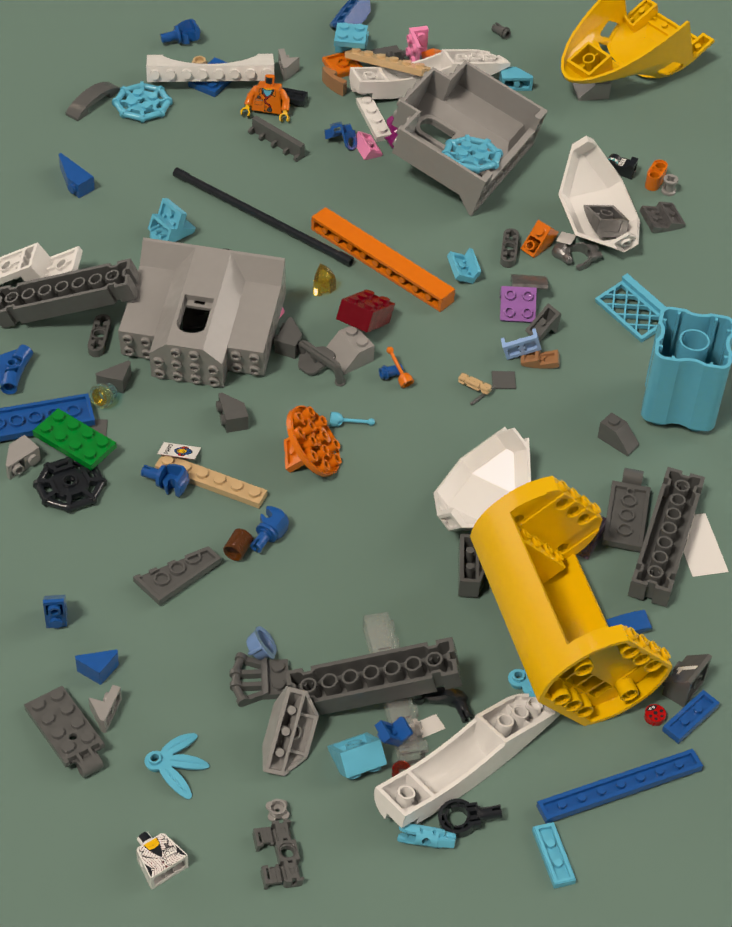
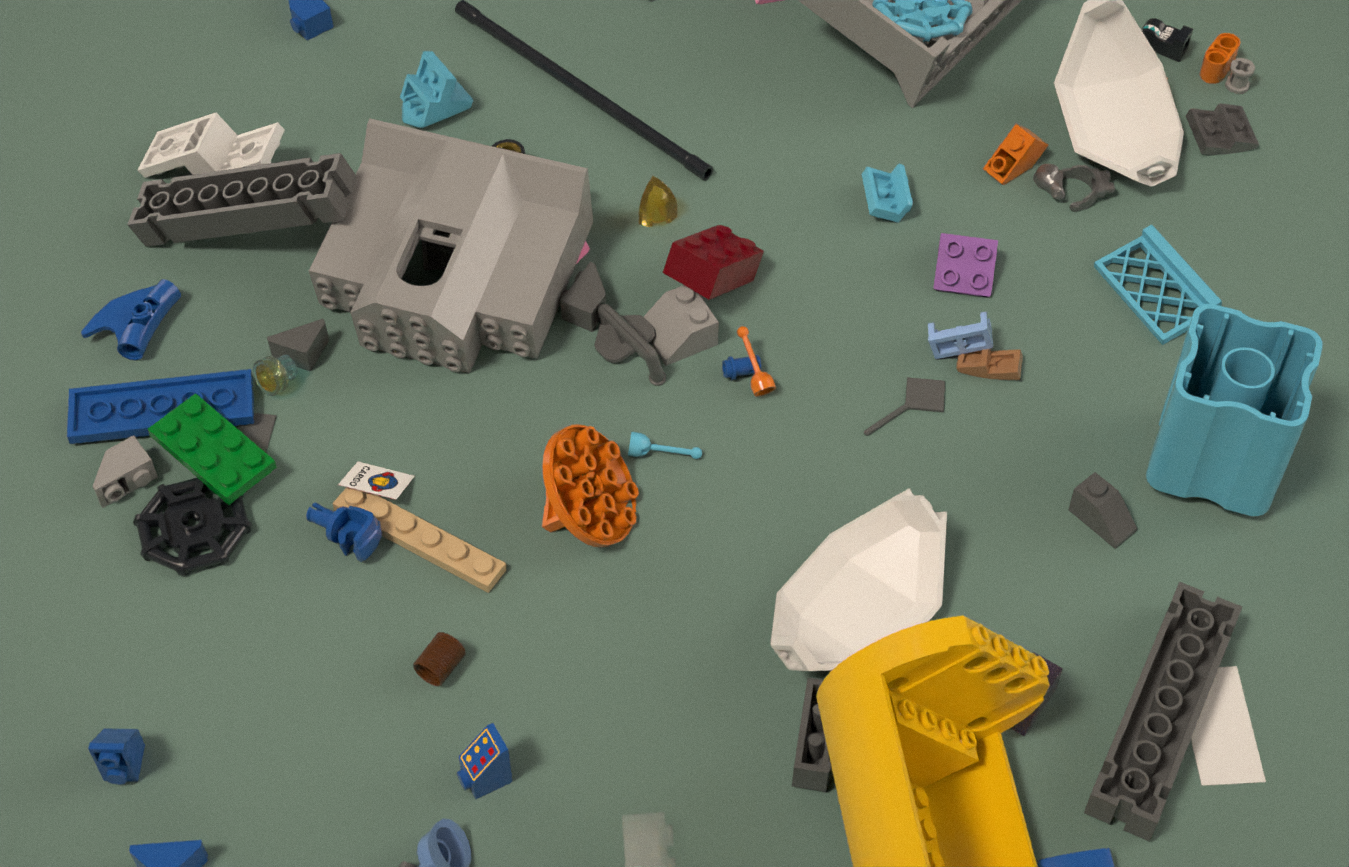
camera: 10 degrees right, 5 degrees up
(97, 329) = (292, 281): dark grey beam -> none
(169, 580) = (318, 712): dark grey wing -> none
(233, 413) = (474, 422): dark grey slope -> none
(270, 528) = (497, 635): blue piece -> none
(277, 596) = (485, 763): none -> blue slope
(383, 259) = (760, 174): orange brick -> none
(475, 383) = (875, 399): tan axle -> none
(509, 252) = (968, 175): dark grey beam -> none
(538, 282) = (989, 226): flat silver slope -> none
(546, 320) = (1005, 299): dark grey slope -> none
(566, 238) = (1059, 155): white sticker -> none
(606, 220) = (1128, 131): flat silver slope -> none
(627, 512) = (1101, 656): dark grey hinge -> none

